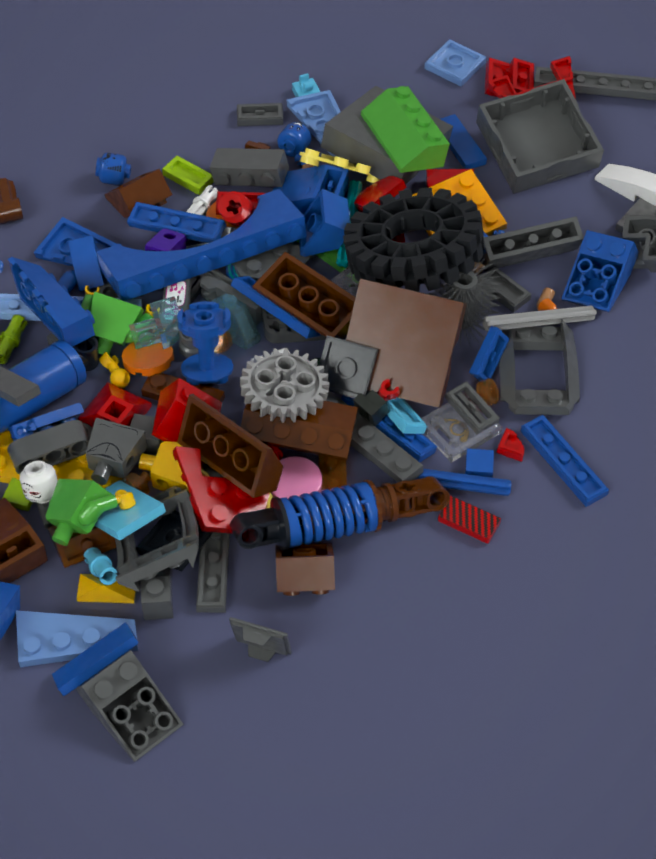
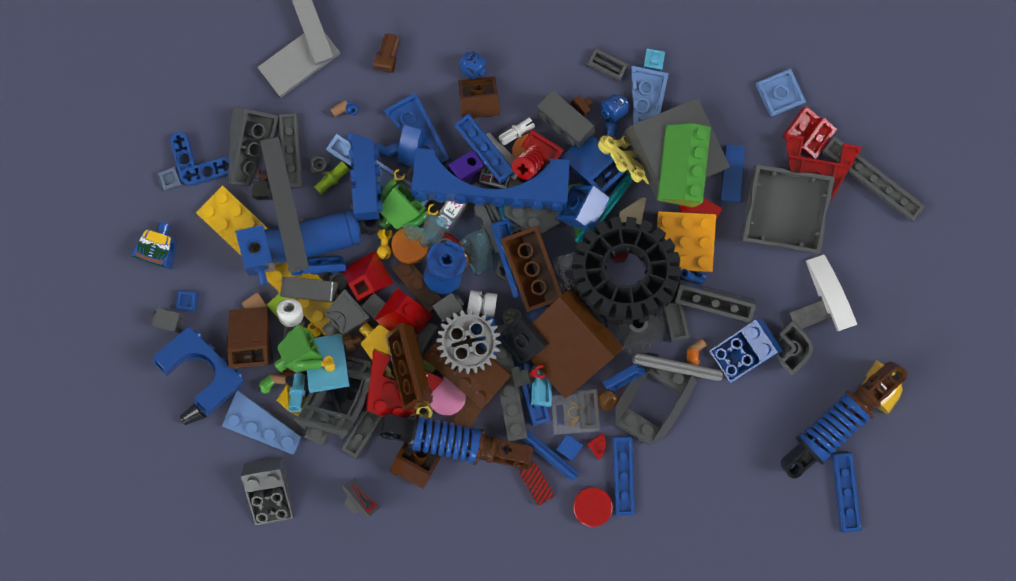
camera: 30 degrees right, 30 degrees up
(58, 576) = (266, 384): none -> arm
(94, 659) = (262, 453): blue tile -> none
(187, 175) = (523, 95): lime tile -> none
(229, 386) = (448, 306): none -> dark grey brick
(385, 186) = (636, 199): red slope -> none
(553, 506) = (592, 506): none -> red tile

